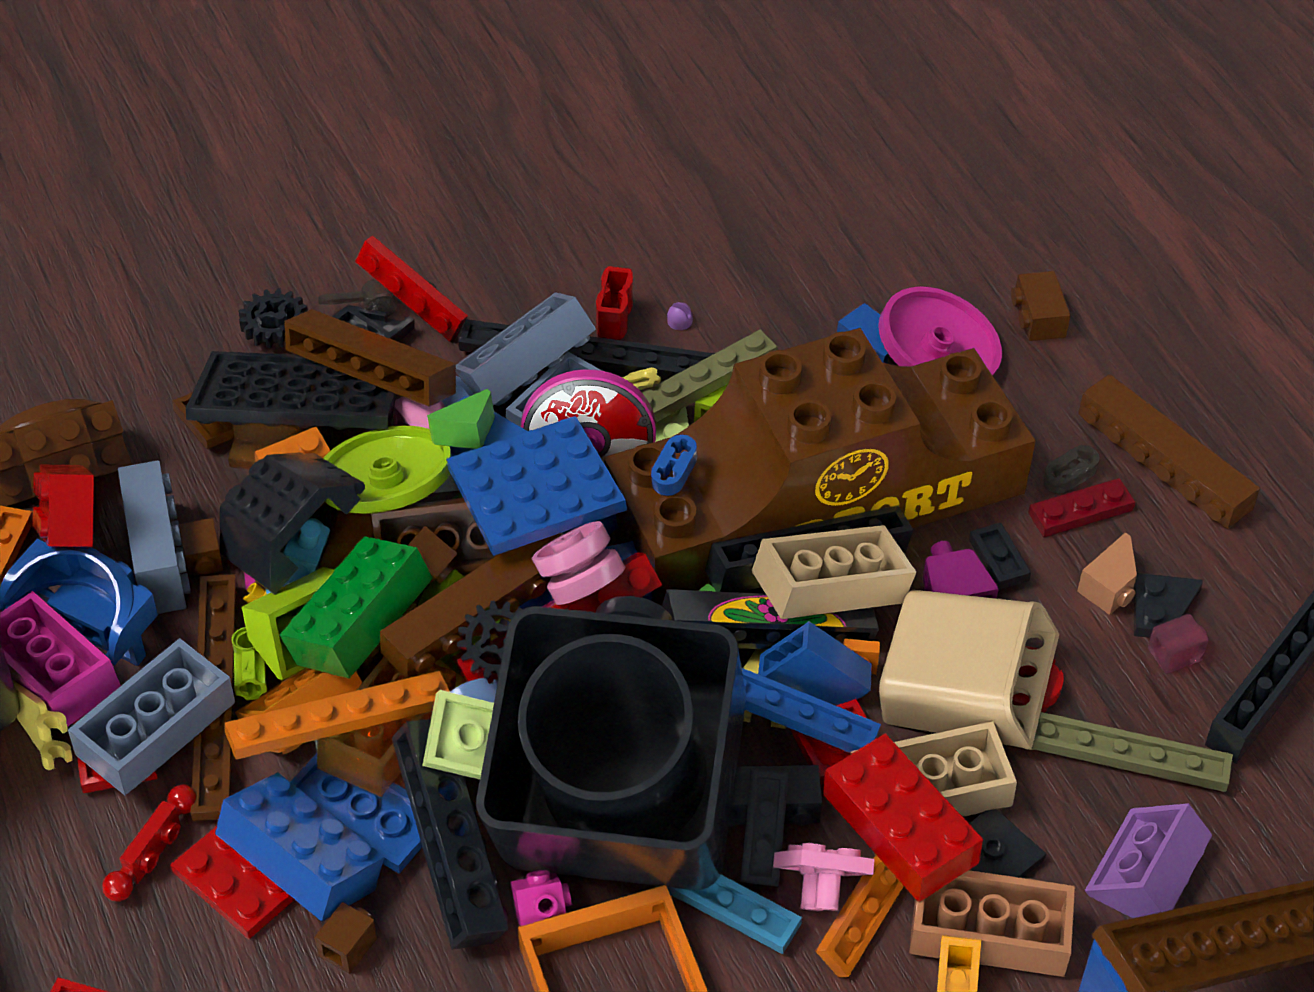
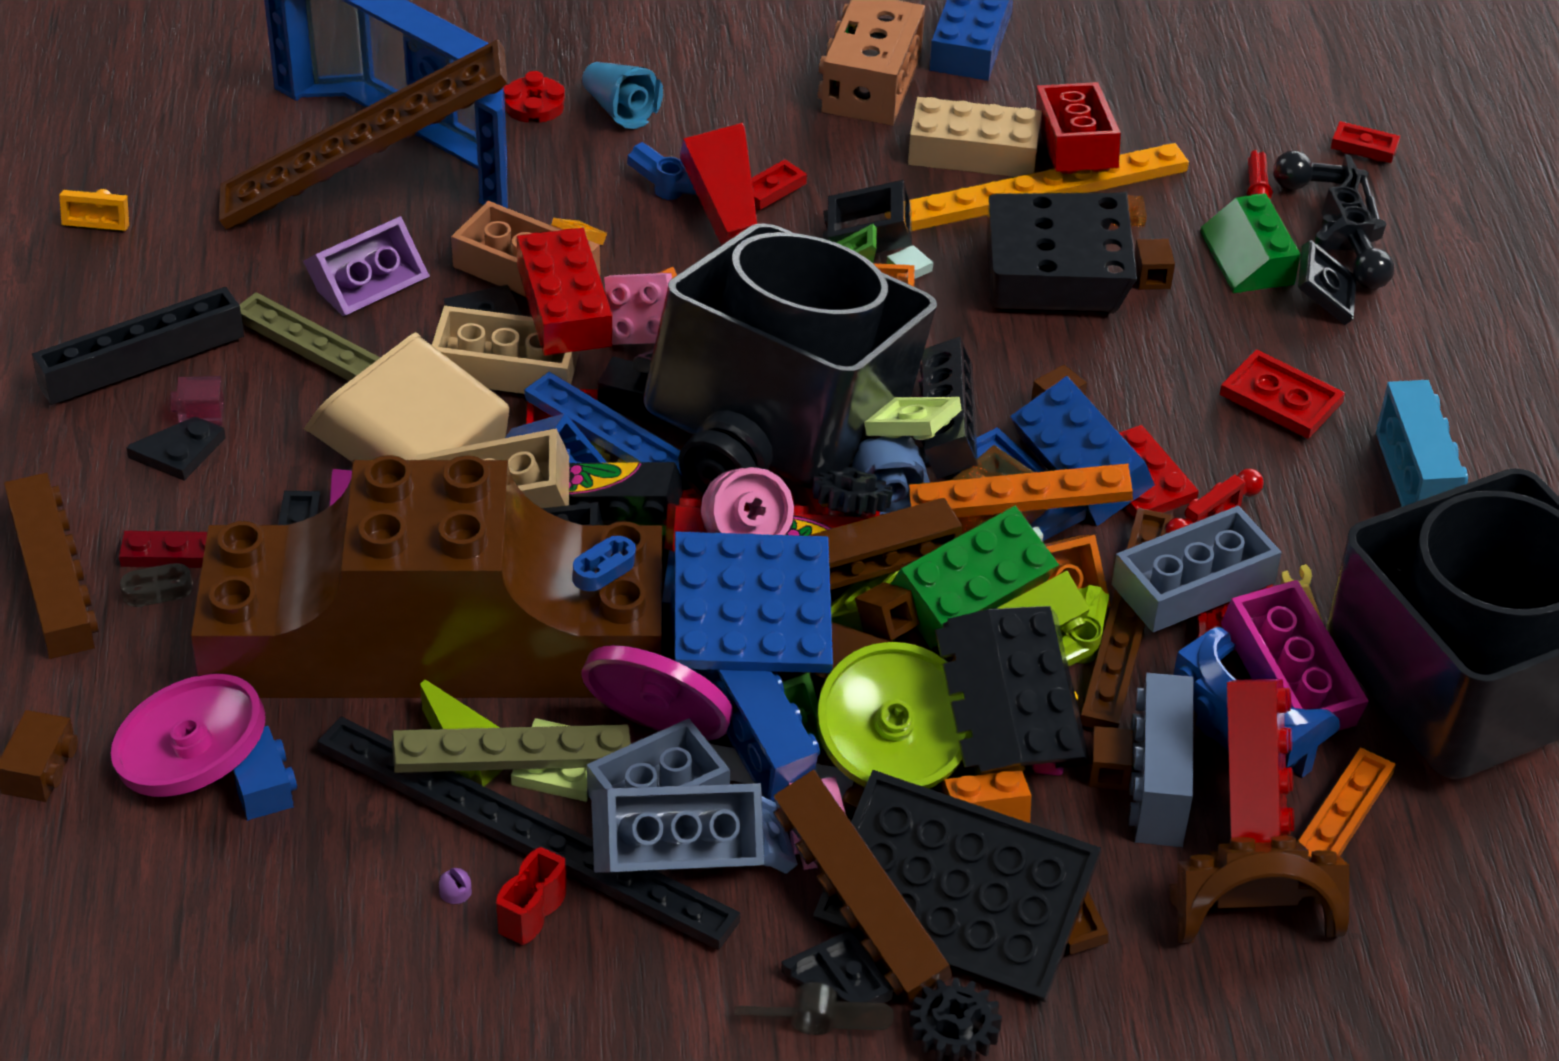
camera: 160 degrees left, 5 degrees down
(411, 288) = (783, 980): red plate -> none
(463, 422) = (796, 698): bright green slope -> none
(643, 378) = (555, 786): light yellow axle -> none
(1111, 576) = (207, 471): nougat slope -> none

